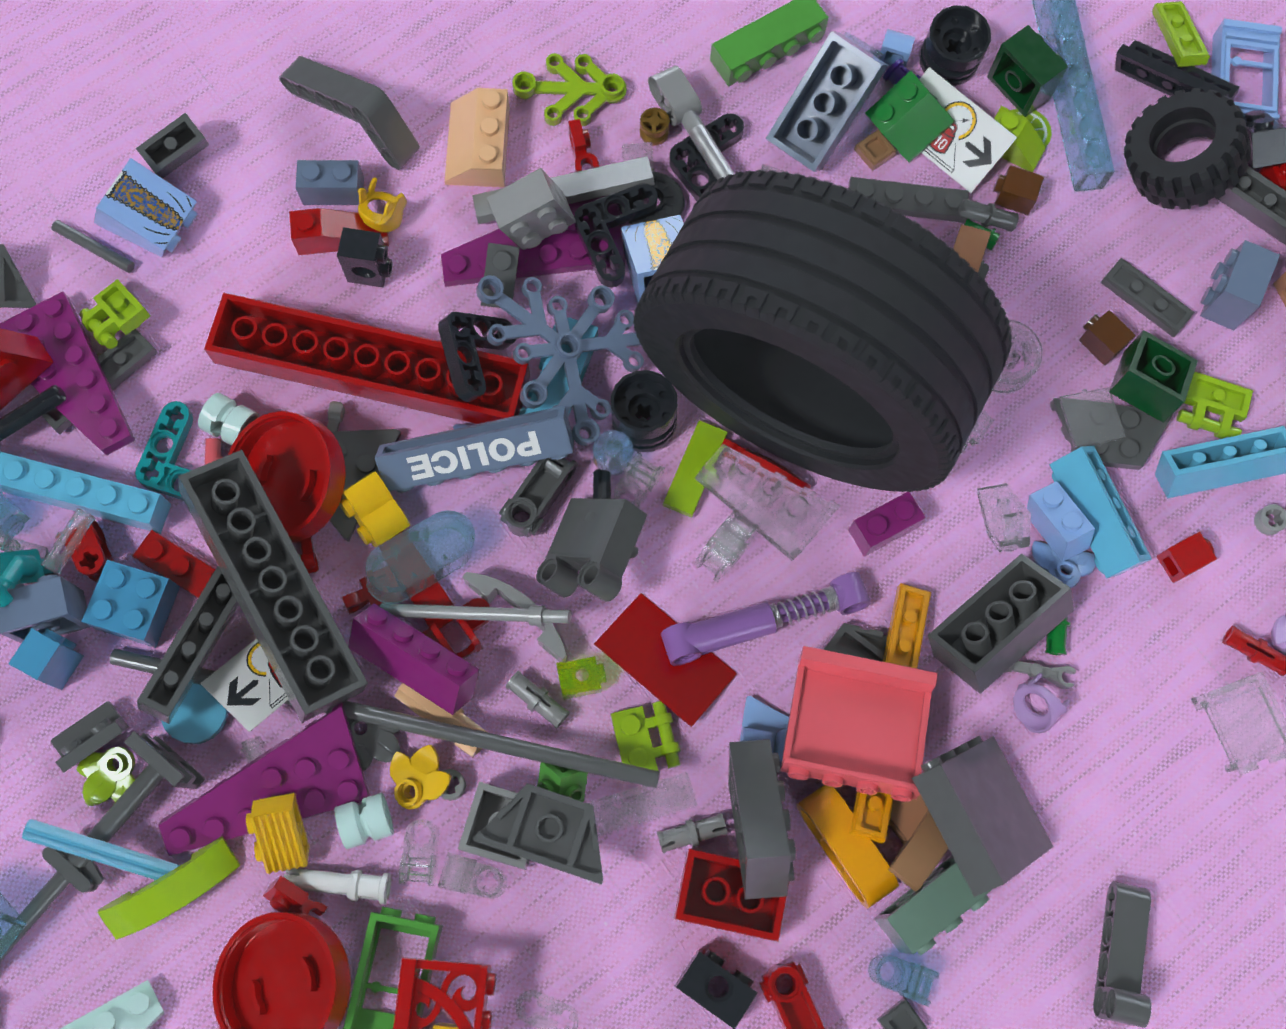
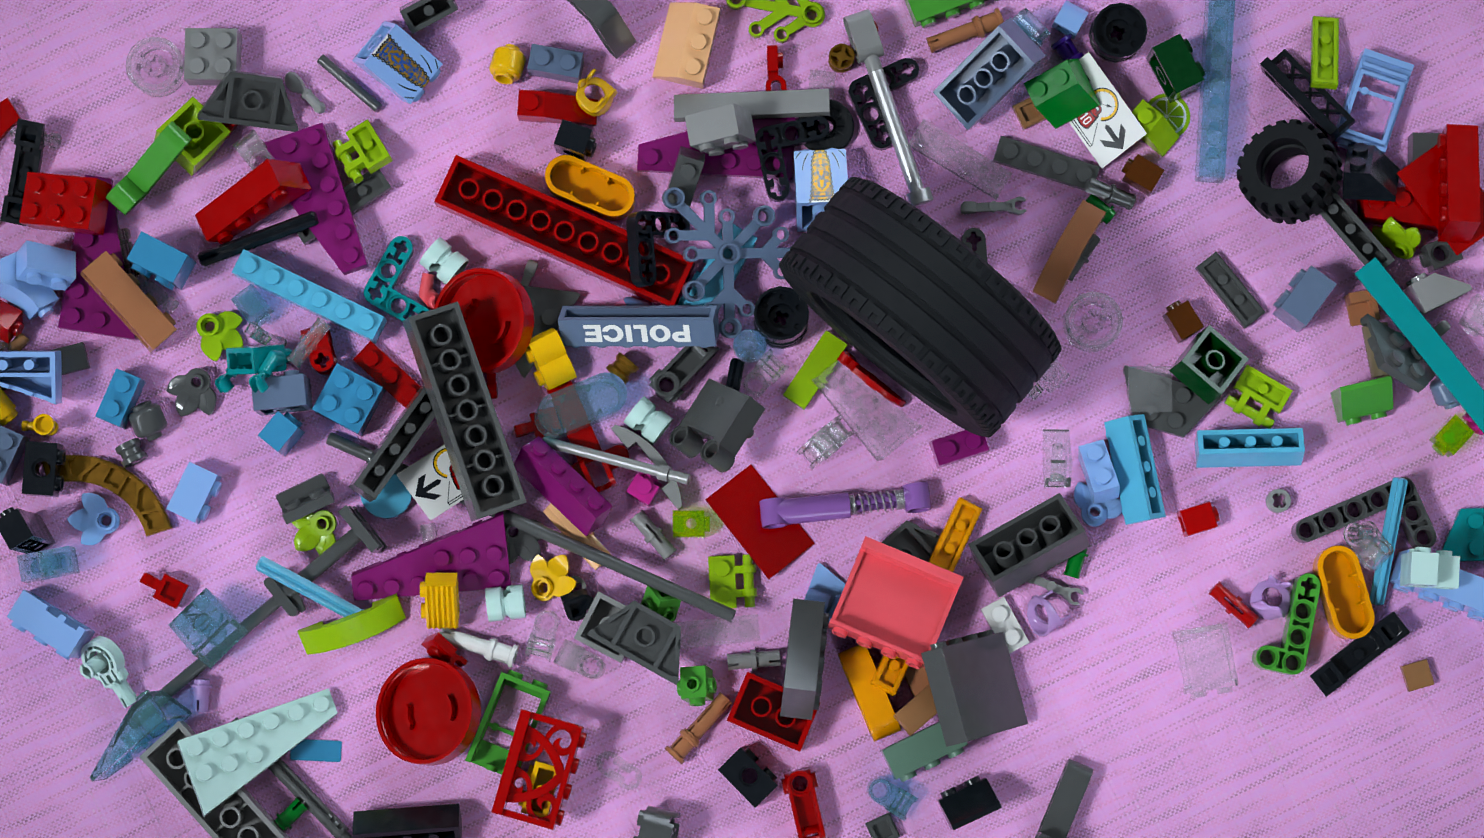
camera: 15 degrees right, 10 degrees up
(29, 257) = (297, 85): none -> light grey piece
(274, 192) = (507, 64): none -> yellow head
(390, 305) = (590, 187): none -> light orange plant
(455, 804) = (577, 603): none -> black tile
(465, 503) = (622, 367): none -> pearl gold wheel
(506, 561) = (648, 420): none -> light aqua wheel
(515, 644) = (644, 488): none -> dark pink brick
(627, 879) = (696, 685): none -> bright green brick
(631, 950) = (690, 737): none -> nougat pin
(780, 80) = (978, 27): none -> nougat pin
(985, 721) = (1003, 620): none -> white plate
(1007, 966) = (968, 802): none -> black slope

